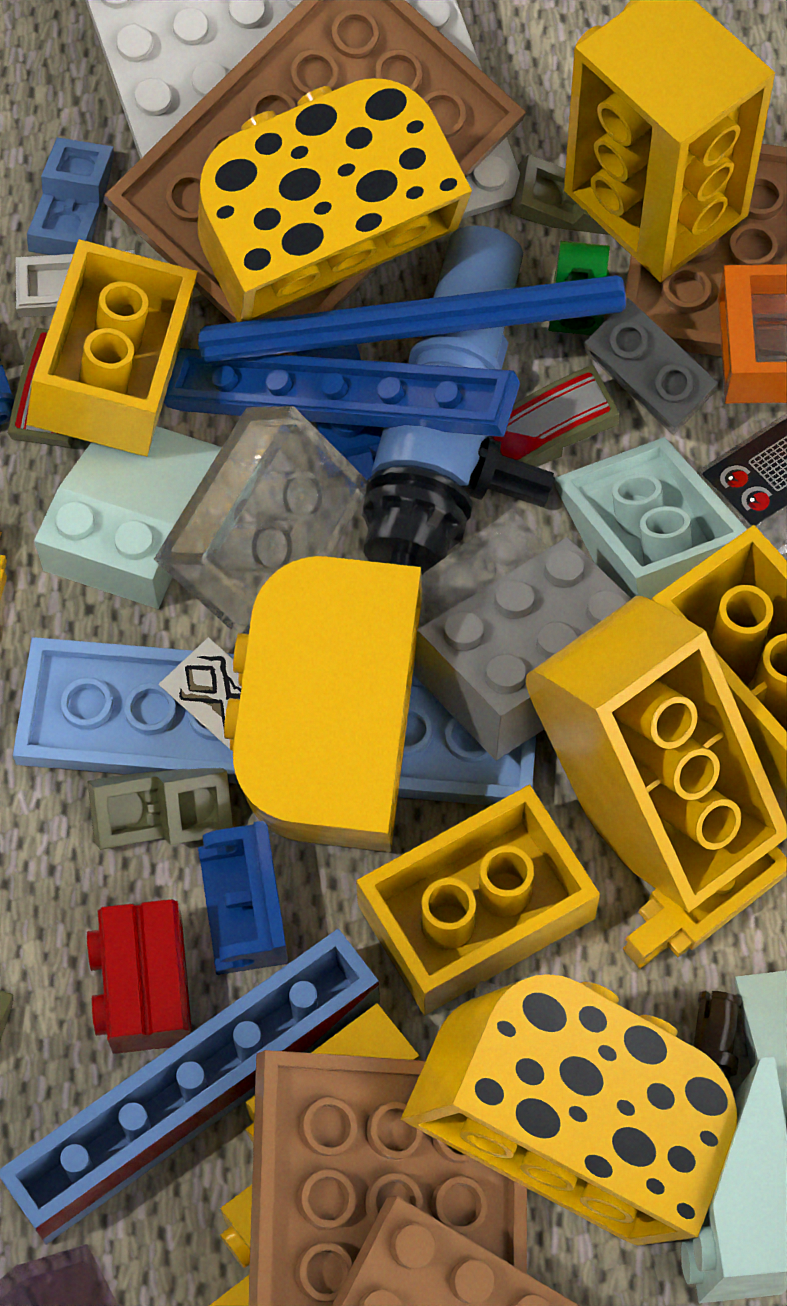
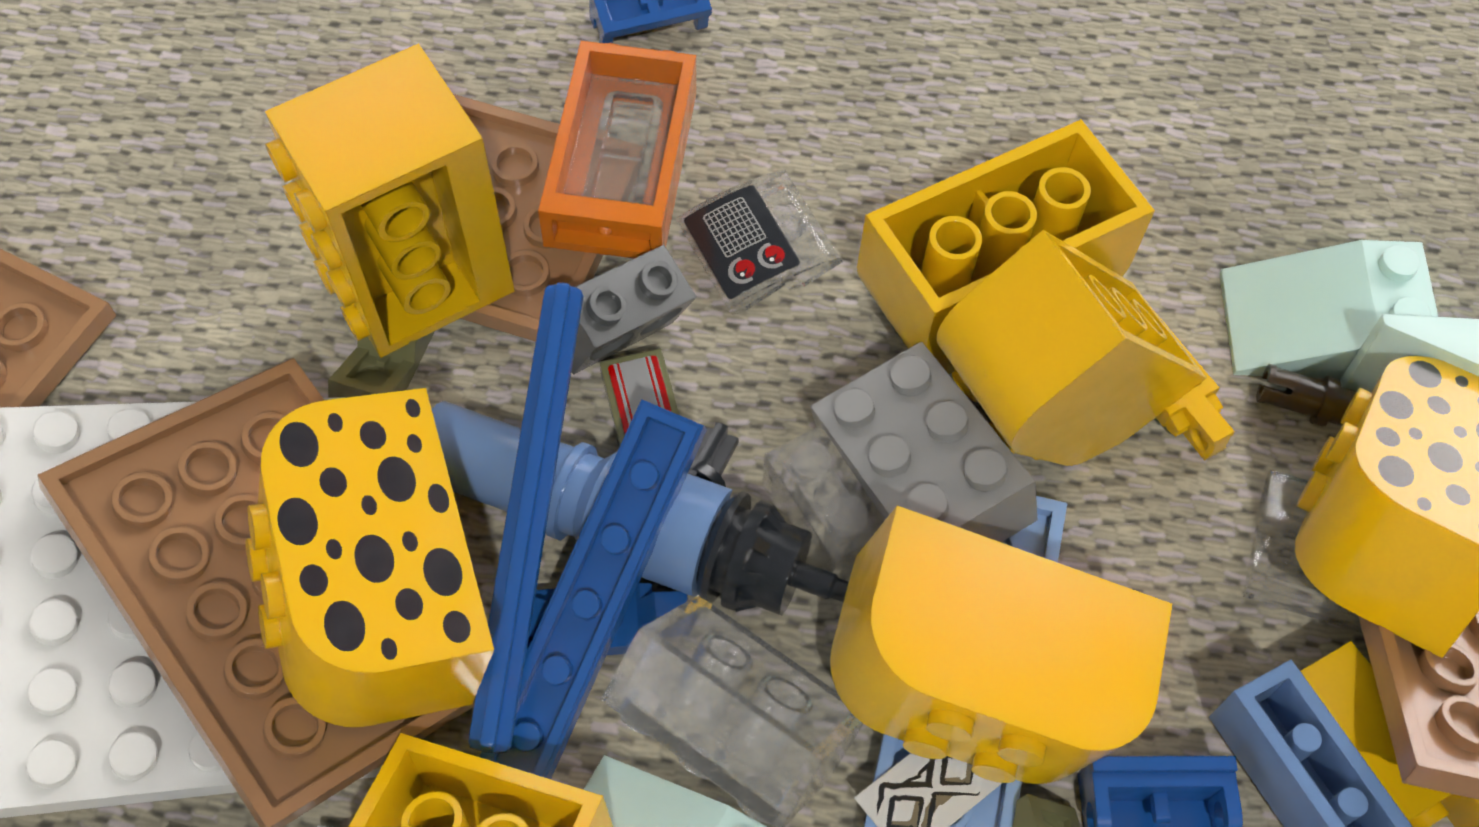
camera: 85 degrees left, 5 degrees down
(477, 899) = (1183, 539): yellow brick -> none
(575, 263) = (503, 354): green leg -> none
(646, 516) = (784, 344): light aqua slope -> none

